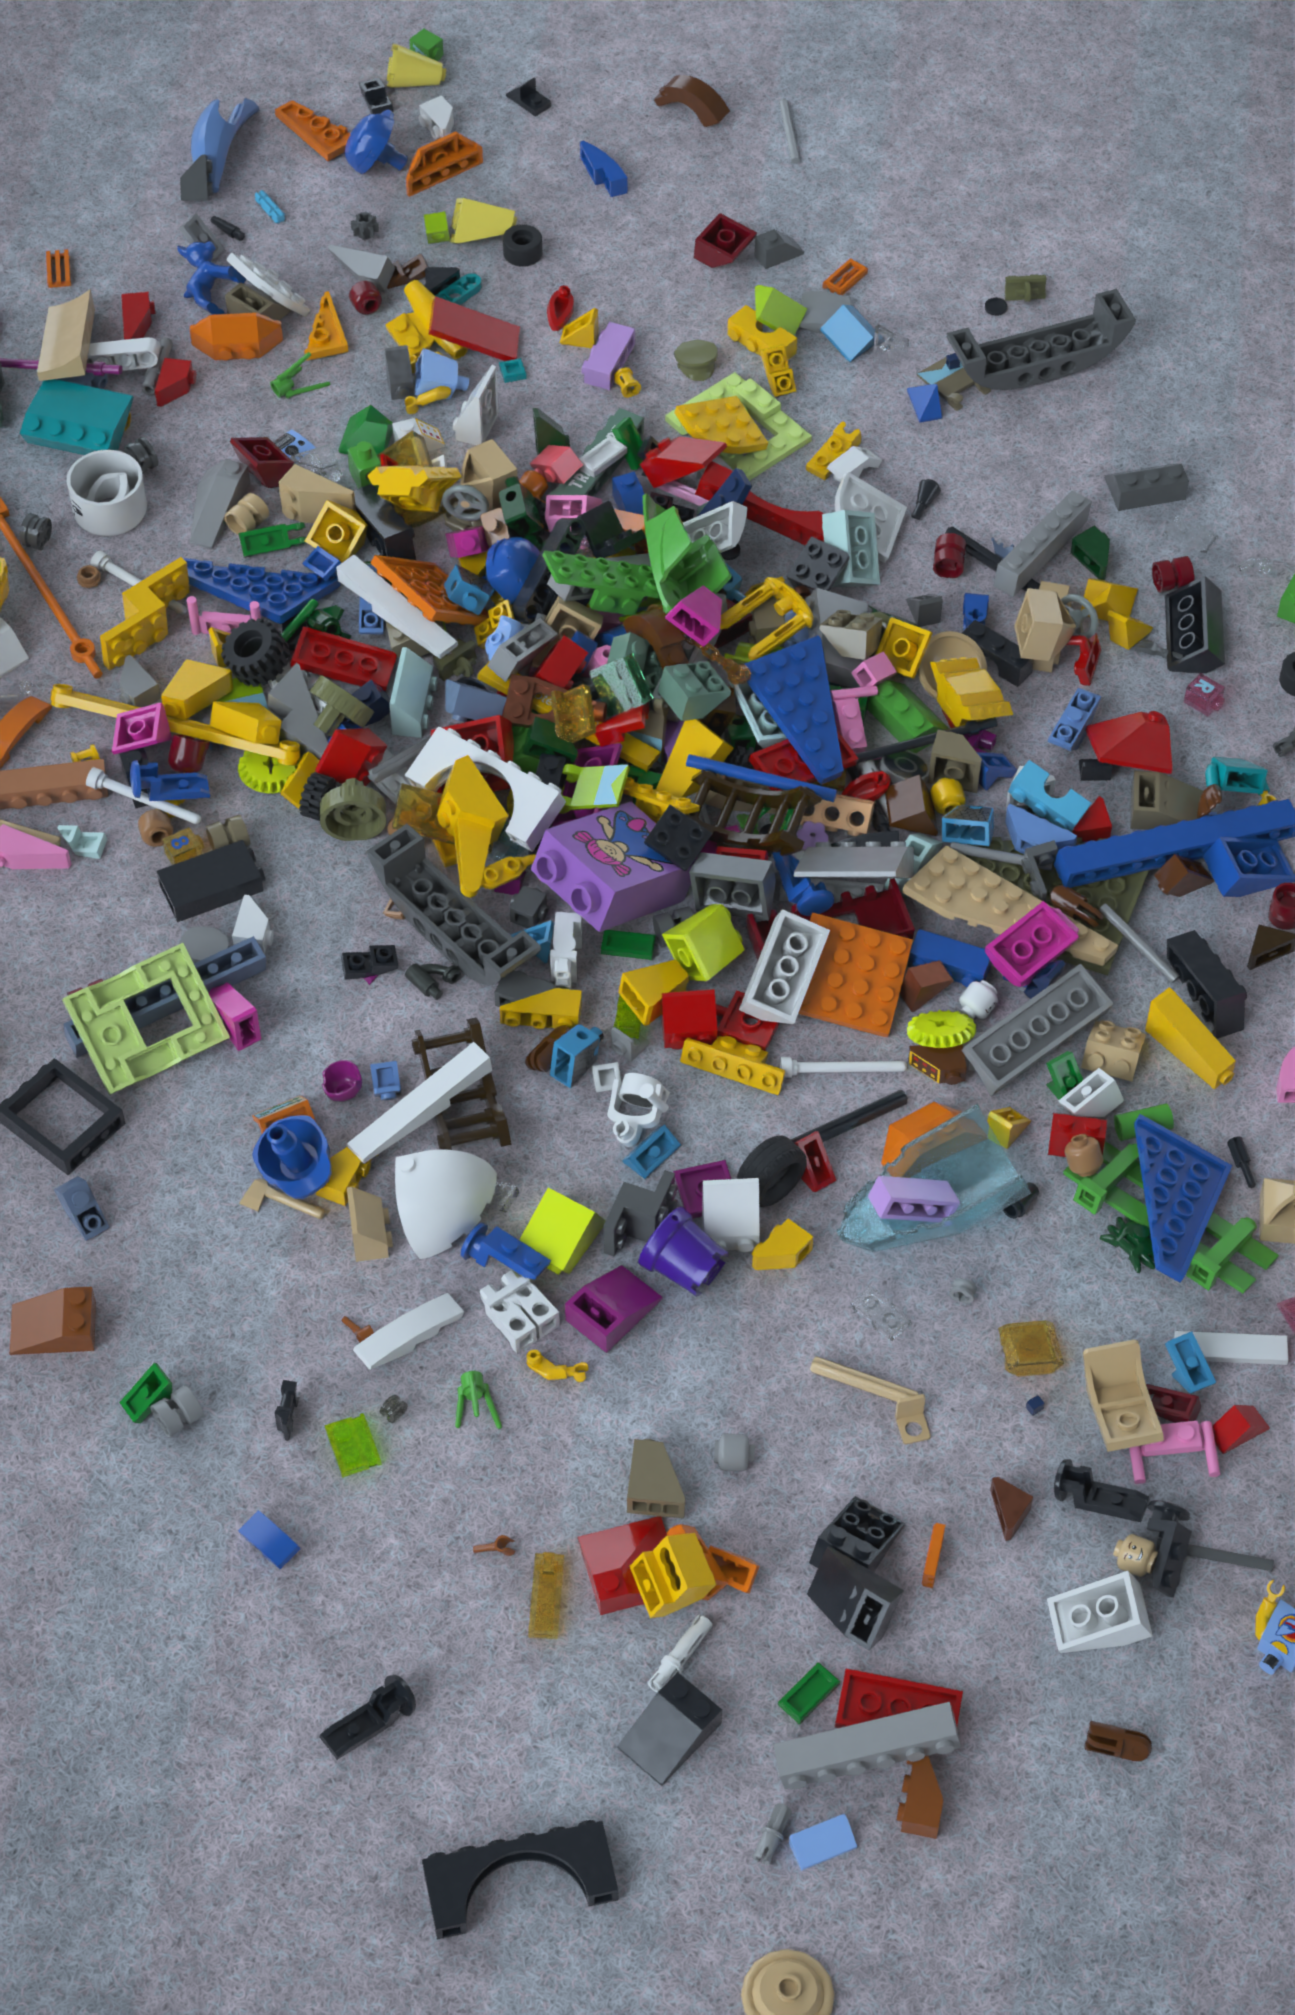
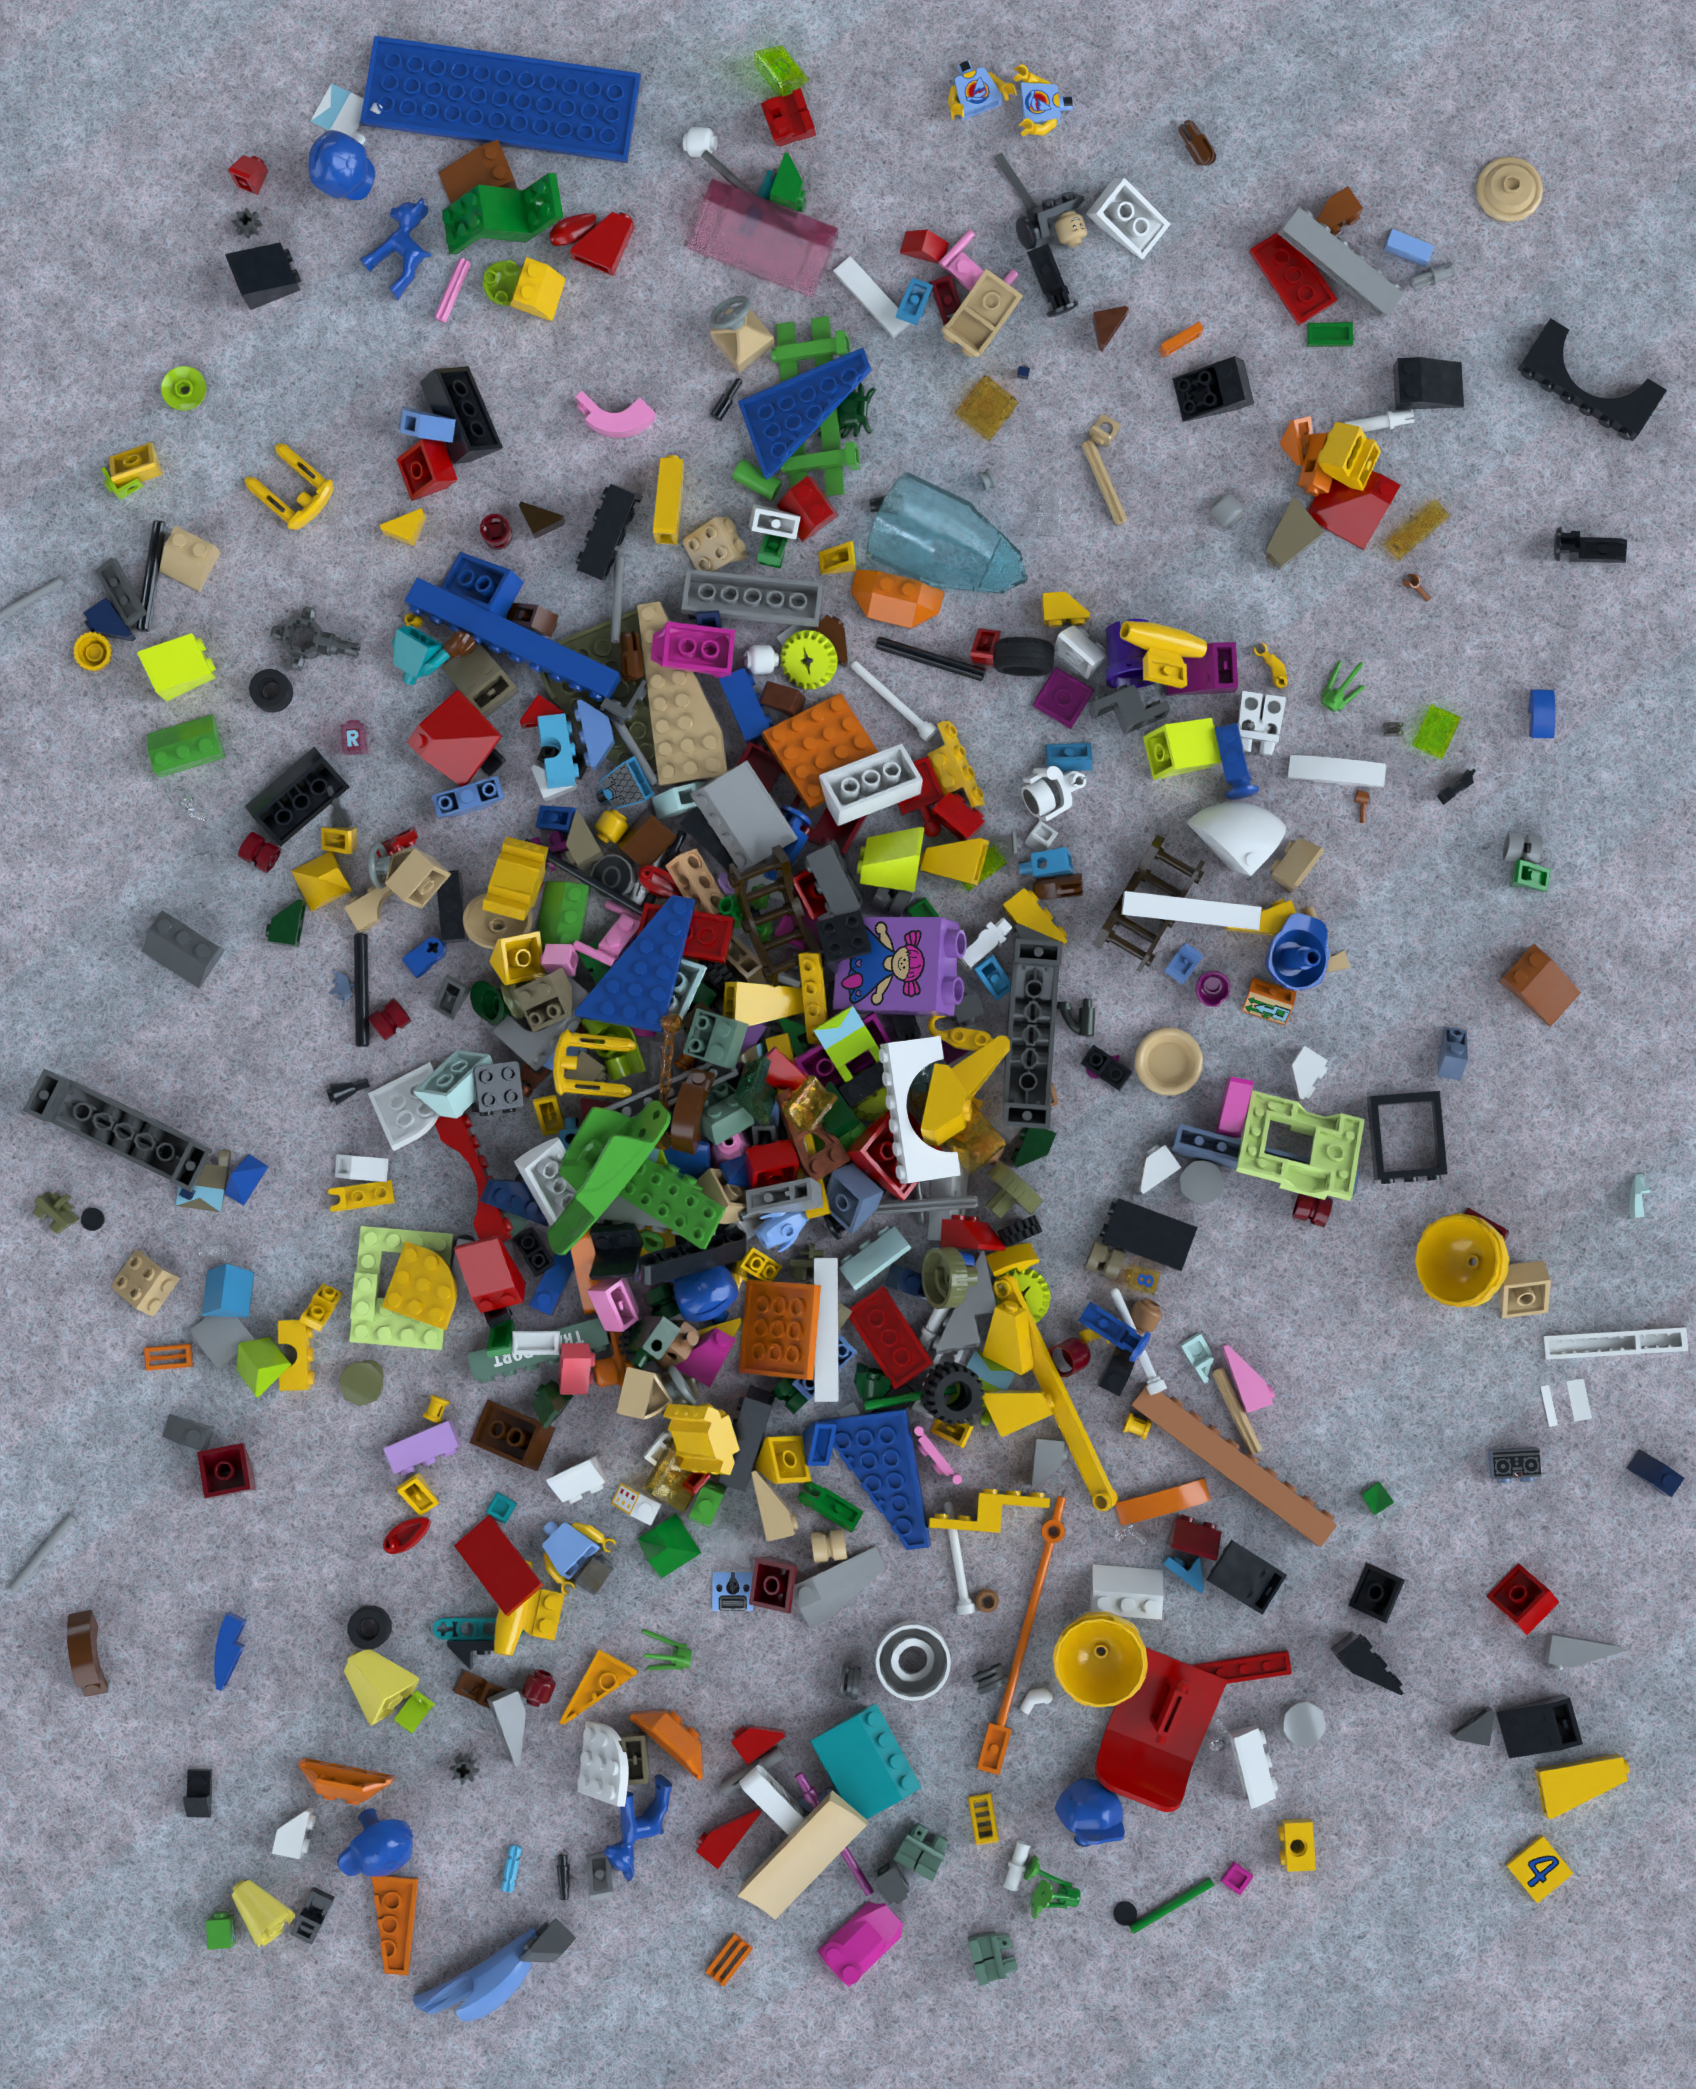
camera: 130 degrees left, 30 degrees up
(141, 728) = (1088, 1402): dark pink slope -> none
(200, 1091) = (1305, 1070): none -> white slope
(322, 1001) = (1168, 1061): none -> tan piece
(362, 867) = (1034, 1146): none -> dark green slope
(470, 590) = (754, 1306): dark azure torso -> none
(561, 402) = (512, 1435): none -> reddish brown slope
(658, 1255) = (1164, 650): none -> yellow plate
(698, 615) = (651, 1093): dark pink slope -> none
(756, 776) = (737, 935): blue piece -> none
(854, 1598) = (1258, 349): black slope -> none
(910, 292) = (144, 1283): none -> tan bracket
(913, 1199) = (962, 552): lavender brick -> none
(1042, 543) = (319, 961): light grey brick -> none
(1084, 1155) = (829, 481): medium nougat head -> none

